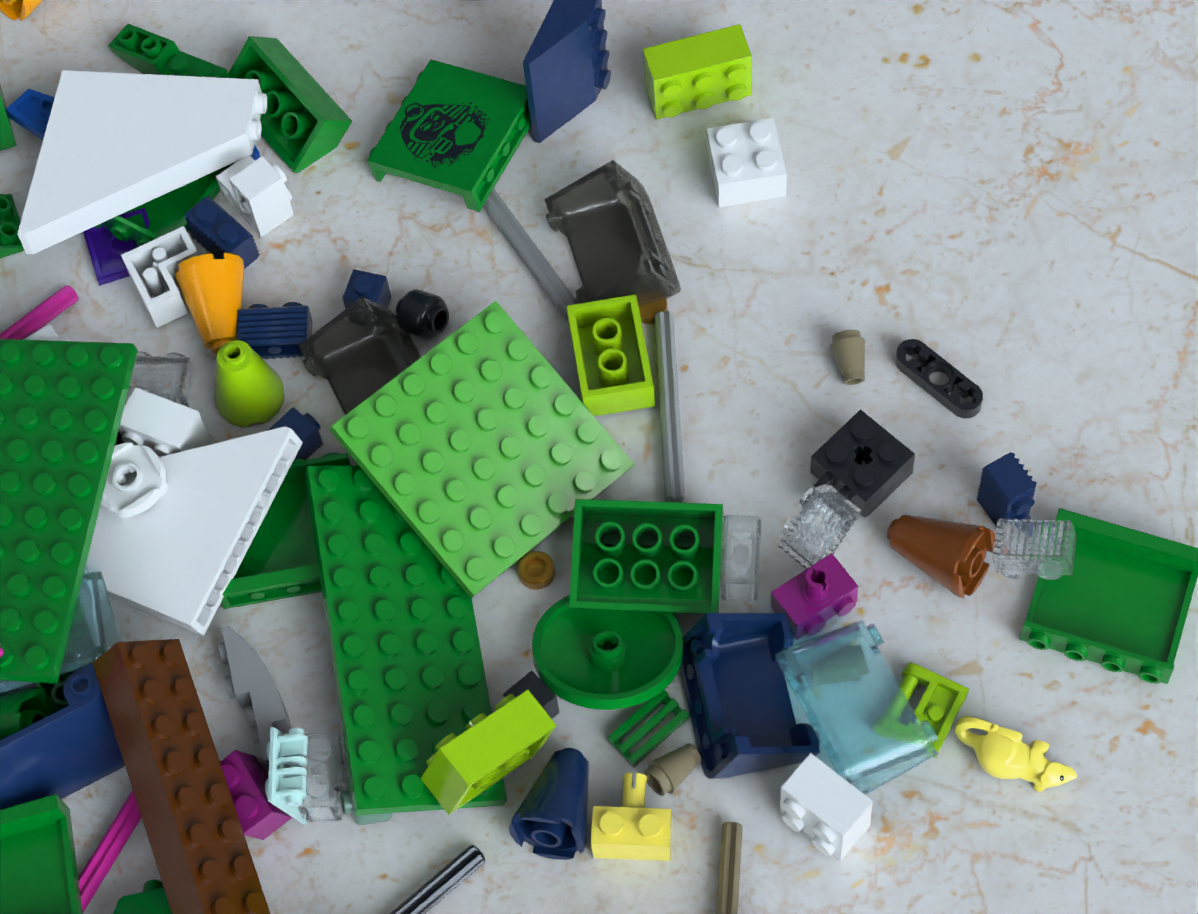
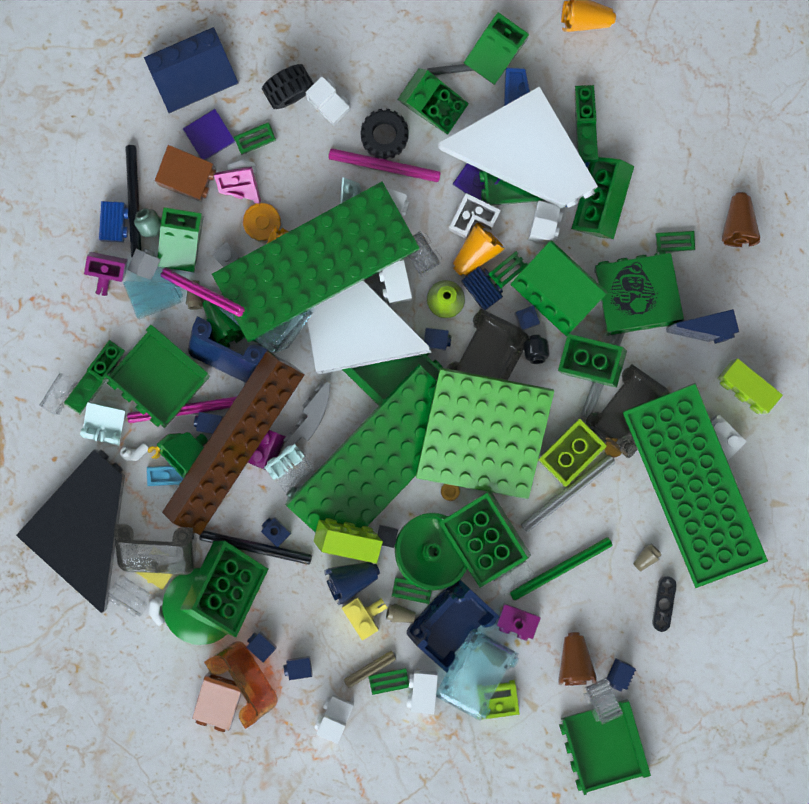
camera: 45 degrees right, 25 degrees up
(133, 860) = (207, 422): none -> dark blue brick
(147, 487) = (365, 303): white plate -> none
(220, 232) = (512, 225): dark blue brick -> none
(277, 266) = (518, 261): none -> green tile
(356, 218) = (558, 288): none -> green slope
(389, 873) = (275, 531): none -> dark blue brick
(437, 51) = (682, 241): none -> green tile
(497, 242) = (592, 360): none -> green brick
(777, 488) = (561, 568): none -> green axle
(783, 833) = (373, 684): none -> green tile
(788, 216) = (695, 485): none -> green plate
(818, 526) = (548, 603): clear brick -> none
(863, 463) = (585, 591): black hinge -> none
(1007, 757) = (499, 747): light yellow animal -> none

